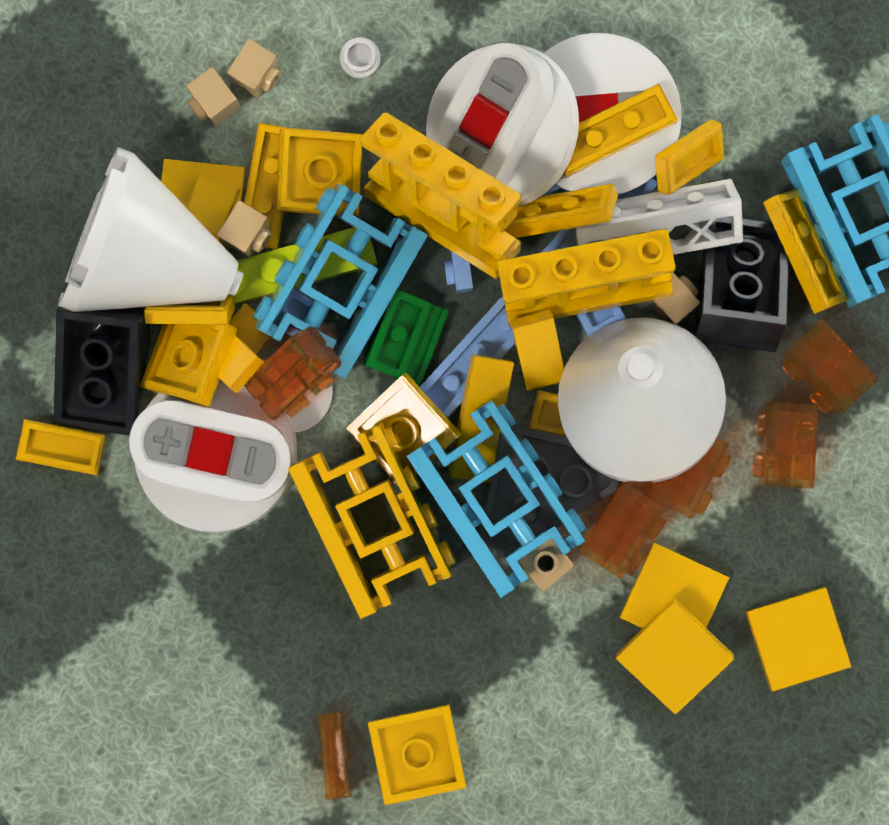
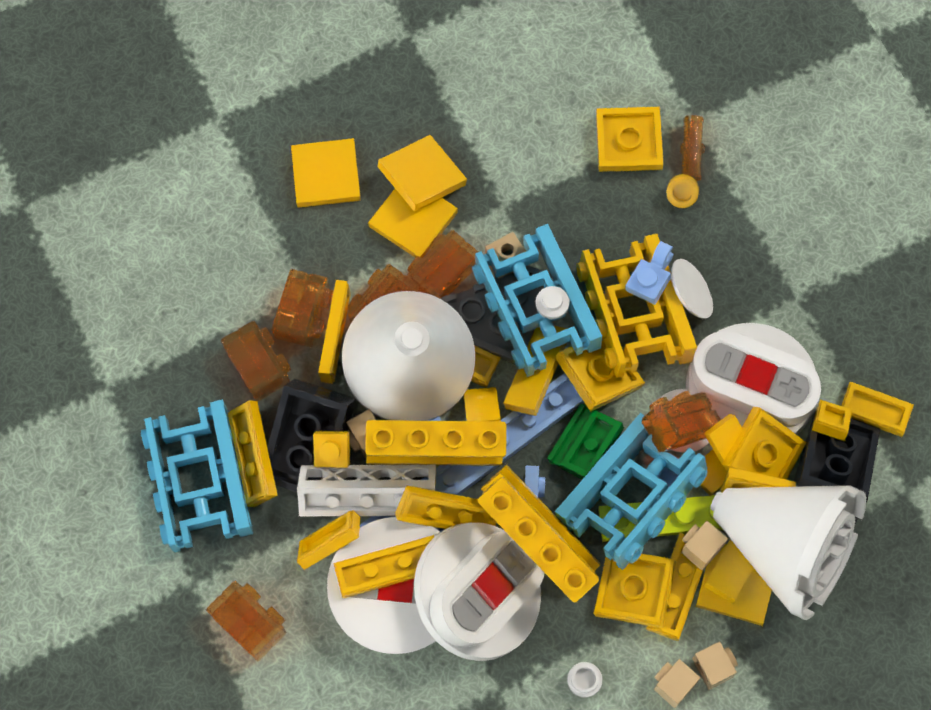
camera: 165 degrees left, 15 degrees down
(111, 416) = (832, 420): none -> yellow tile
(306, 555) = (691, 289): none -> white piece
(337, 692) = (682, 191): none -> yellow tile
(359, 549) = (651, 278): none -> light blue plate
(476, 488) = (552, 302): none -> white plate
(710, 262) = (331, 449): none -> yellow plate
(739, 422) = (334, 332): none -> yellow tile
(763, 51) = (247, 620): none -> clear orange brick

